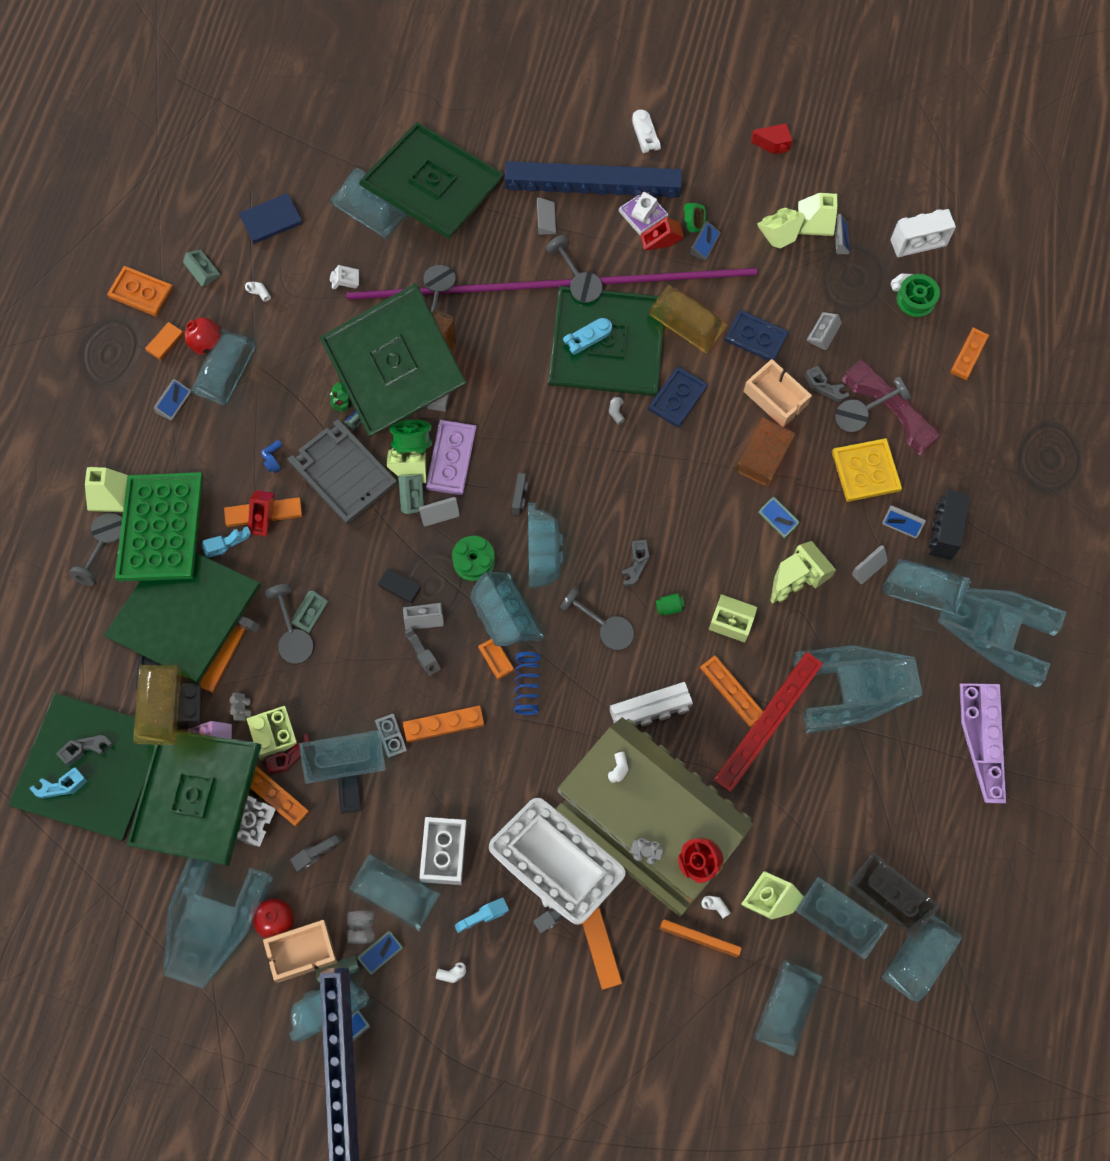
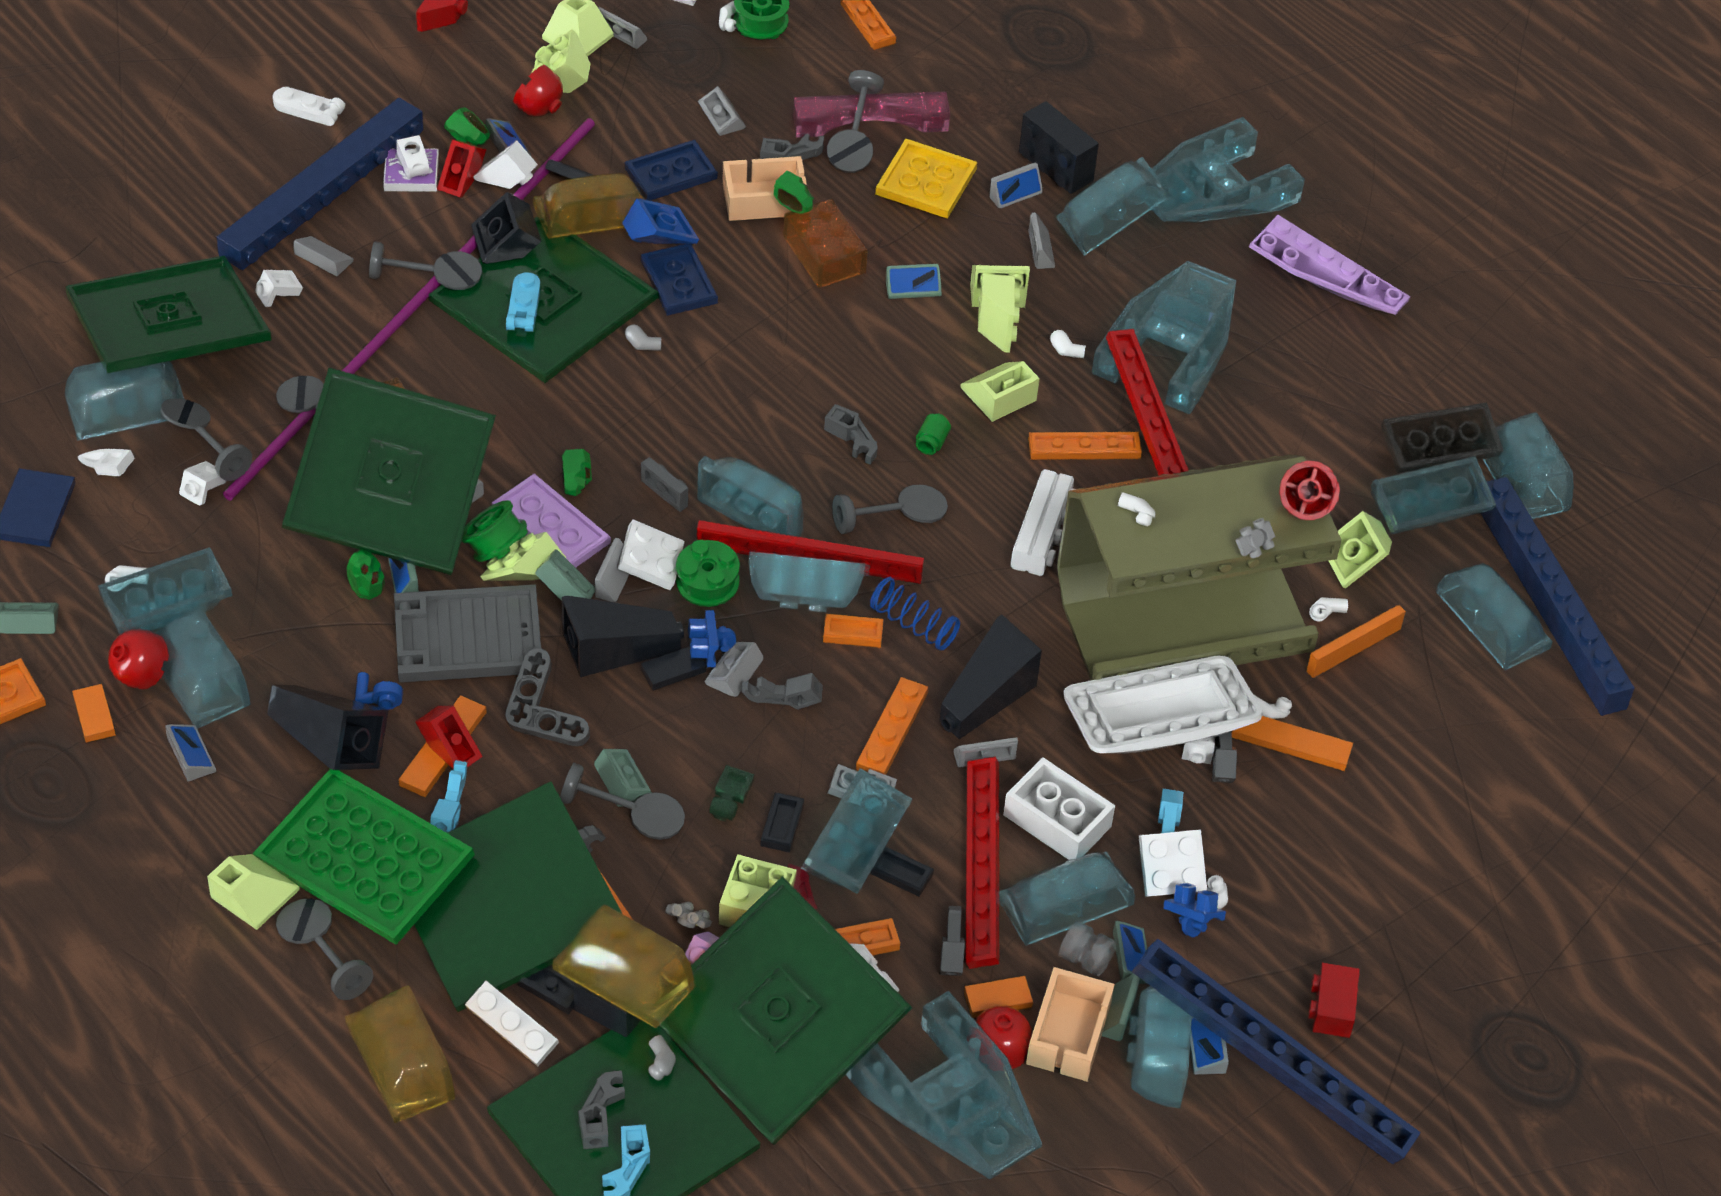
camera: 55 degrees left, 20 degrees down
(57, 631) = (402, 1054): none -> clear yellow windscreen
(110, 669) = (512, 1023): none -> white plate
(135, 759) = (664, 1059): none -> light grey arm
(226, 453) = (331, 727): none -> black slope
(245, 316) = (165, 591): none -> clear light blue windscreen
(300, 899) = (1006, 992): none -> orange tile
(314, 540) = (534, 713): none -> dark grey beam
(323, 226) = (108, 461): none -> white plate
(337, 711) = (782, 822): none -> black tile
(339, 670) = (731, 787): none -> clear green plate
(377, 240) = (231, 461): none -> dark grey piece
(382, 832) = (982, 863): none -> red plate
(389, 541) = (616, 634): none -> black slope
(420, 1087) = (1335, 1000): none -> red brick
(428, 968) = (1194, 913): none -> blue hips
(432, 585) = (708, 639): none -> blue hips
(453, 936) = (1172, 860): none -> white plate
(463, 520) = (650, 554): none -> white plate
(463, 783) = (1003, 750): none -> light grey slope
(491, 444) = (576, 470): none -> green rock
(504, 212) = (277, 283): none -> white bracket
(506, 754) = (994, 678): none -> black slope
(529, 599) = (748, 540): none -> red tile
(612, 921) = (1275, 711): none -> white arm
(630, 290) = (506, 230): none -> black slope
(679, 257) = (508, 167): none -> white slope
(703, 360) = (658, 224): none -> blue slope
(706, 291) = (566, 170): none -> black tile
(747, 233) = (540, 94): none -> red cylinder
(774, 412) = (793, 193): none -> green rock
(799, 629) = (1064, 345): none -> white arm
(828, 1036) = (1557, 600): none -> dark blue brick

